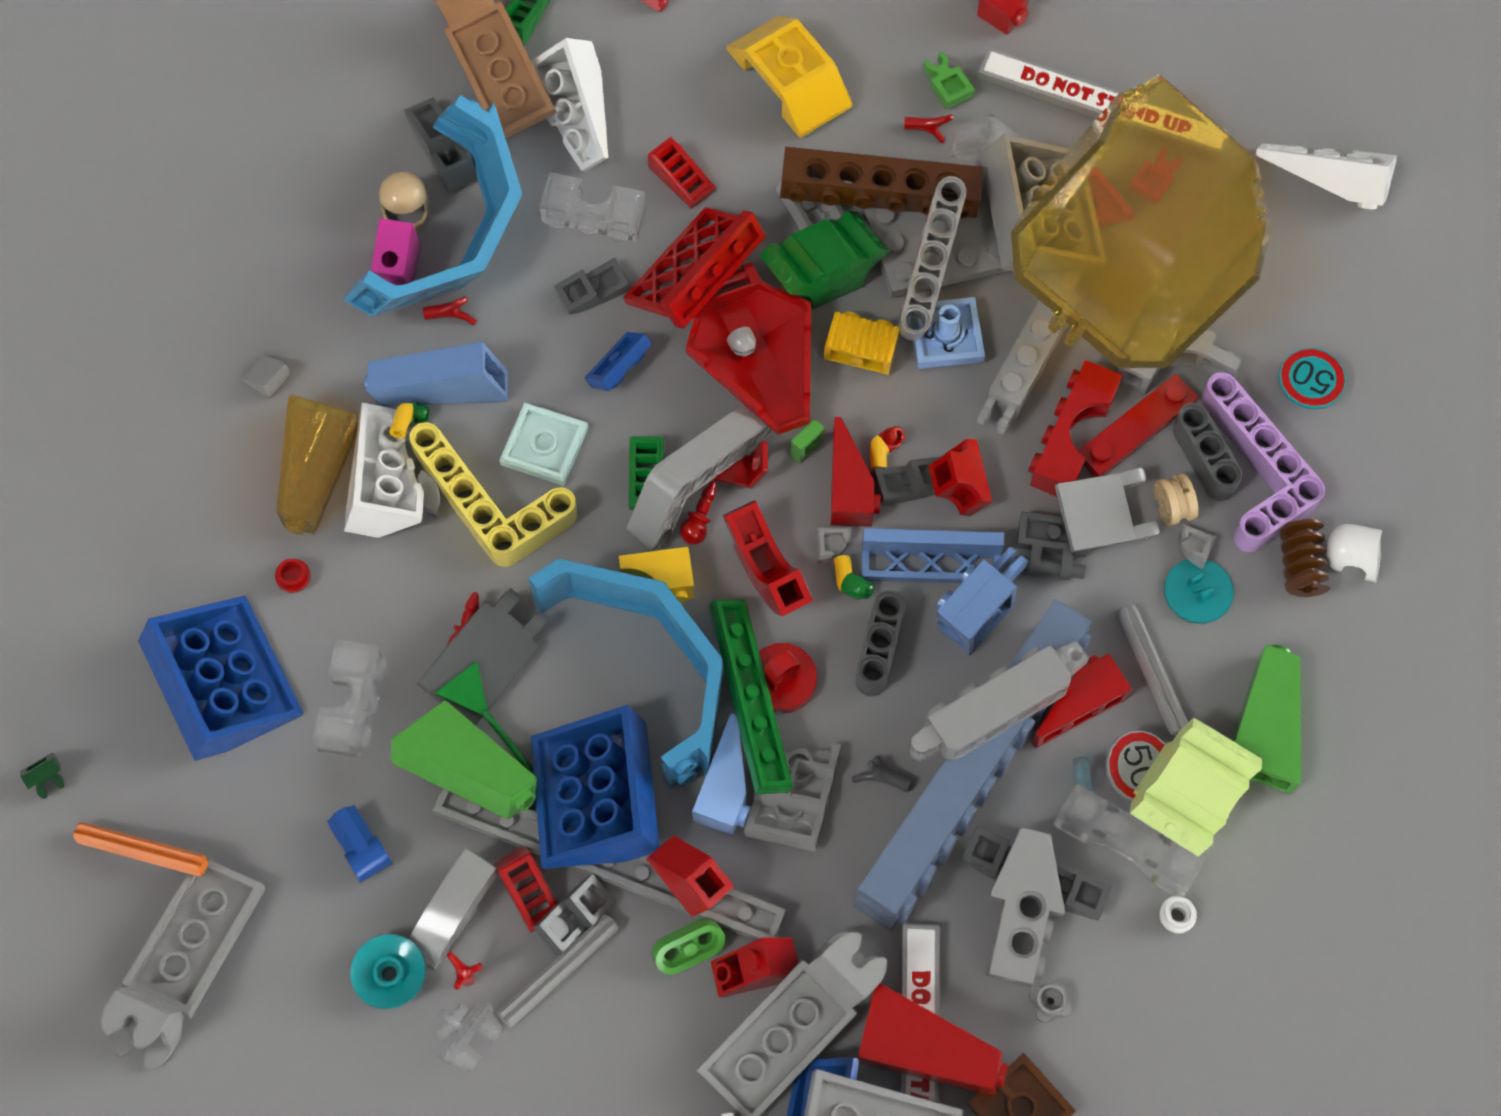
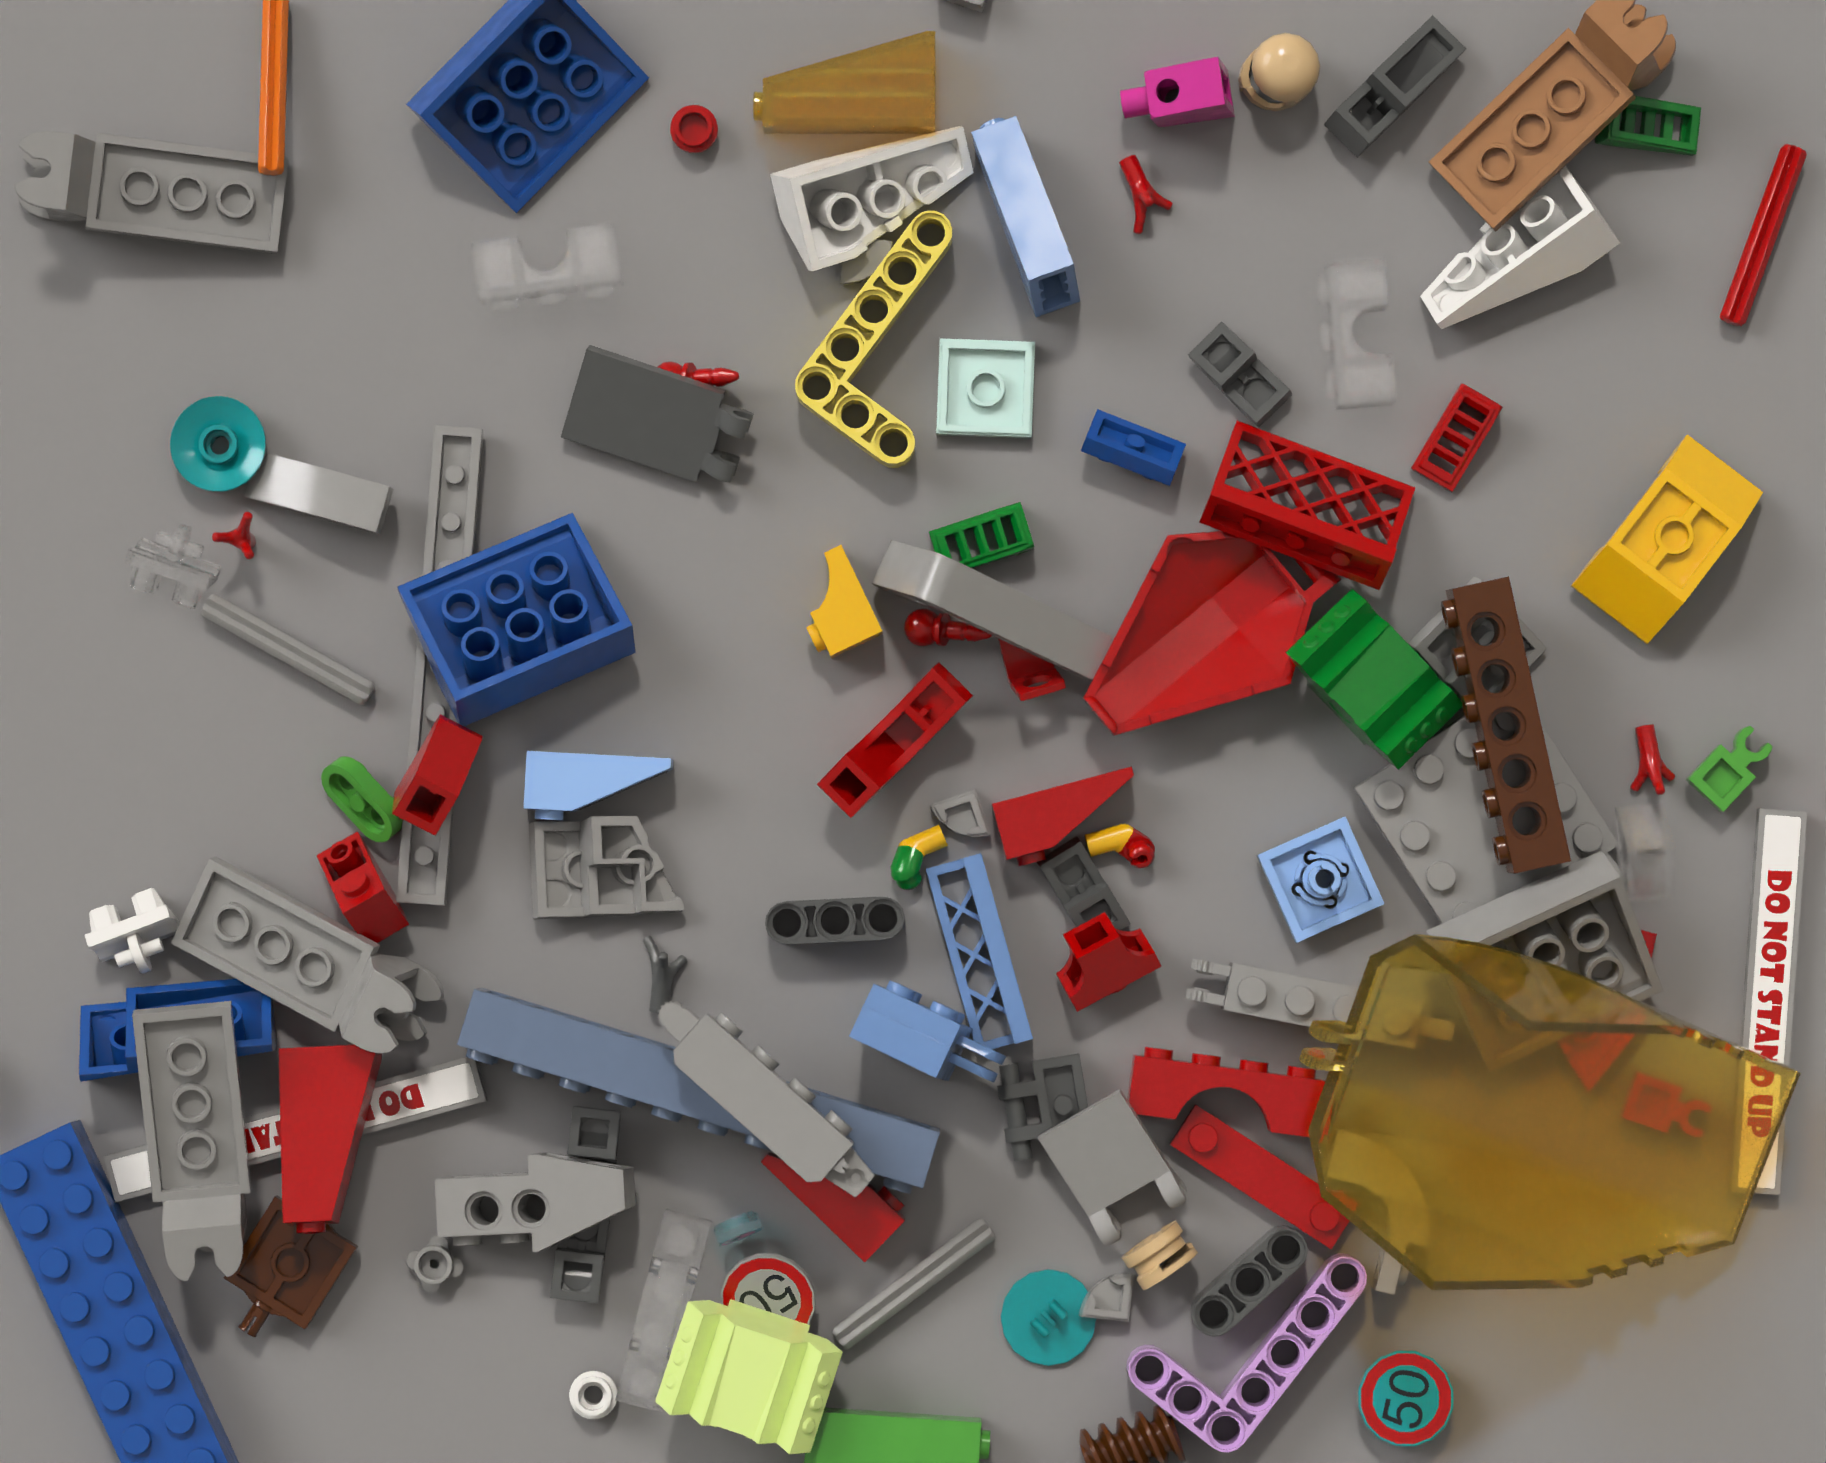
camera: 80 degrees right, 20 degrees up
(362, 850) = (358, 358): blue piece -> none
(408, 414) = (962, 191): yellow arm -> none
(464, 761) = (504, 441): bright green slope -> none
(468, 692) = (597, 415): green piece -> none
(484, 139) = (1260, 205): dark azure panel -> none
(513, 861) = (394, 555): red slope -> none
(574, 914) = (360, 643): dark grey slope -> none
(654, 599) = (609, 738): dark azure panel -> none
(742, 341) = (1209, 608): light grey hinge -> none
(750, 697) = (704, 775): green tile -> none
(789, 676) = (752, 806): red tile -> none
(807, 441) = (1094, 739): bright green tile -> none
(861, 342) = (1267, 768): yellow brick -> none
(932, 242) = (1377, 836): light grey beam -> none
(1355, 177) = (1753, 1372): white wedge -> none

